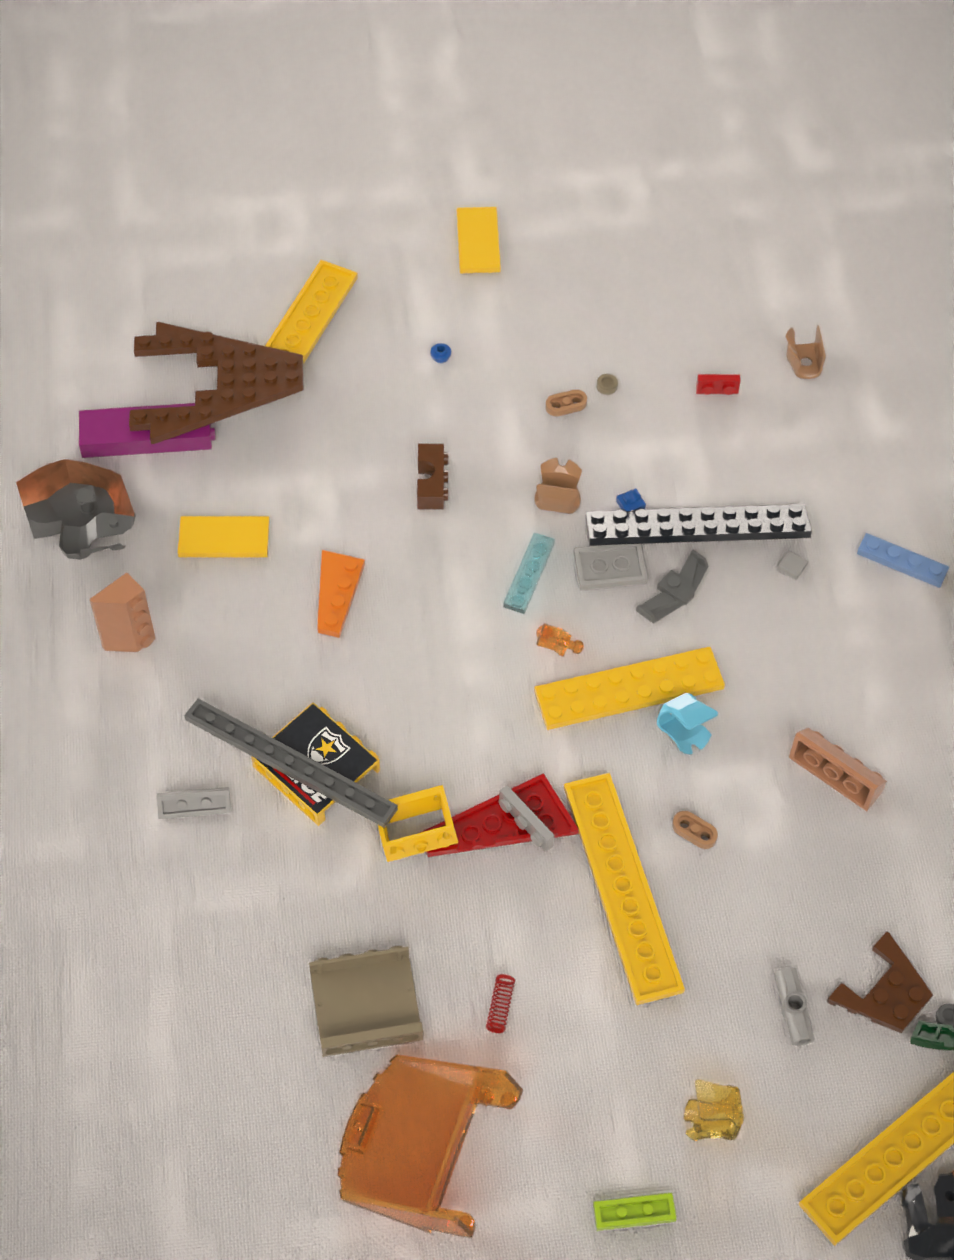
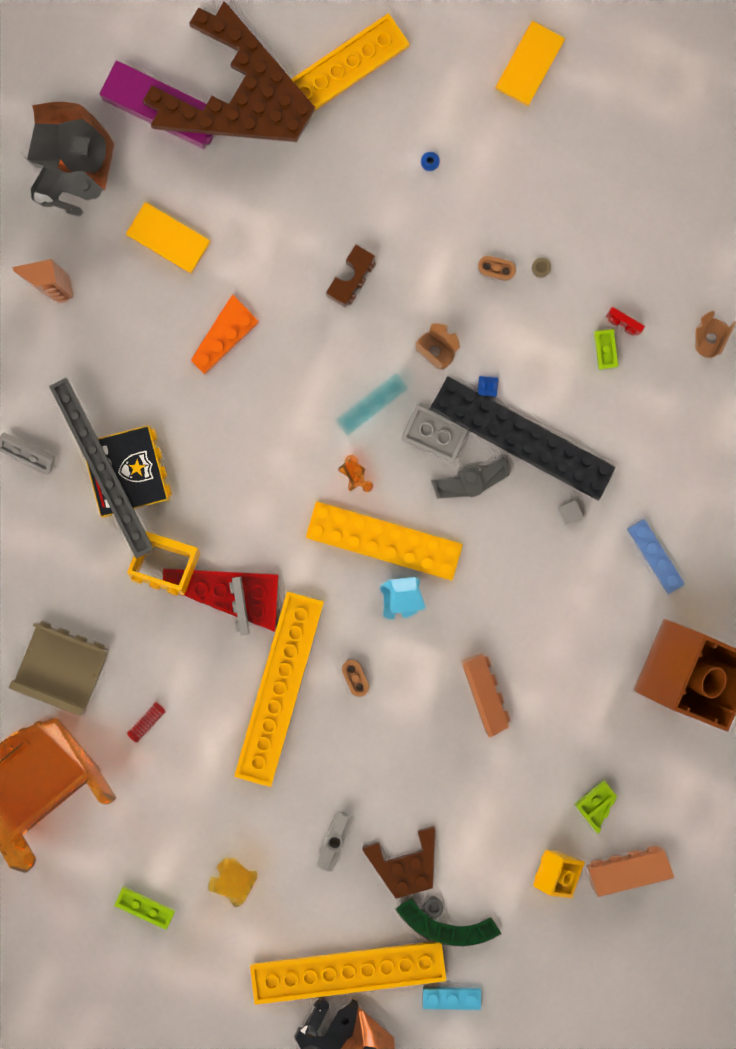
camera: 40 degrees right, 30 degrees up
(718, 415) = (605, 349): none -> lime plate

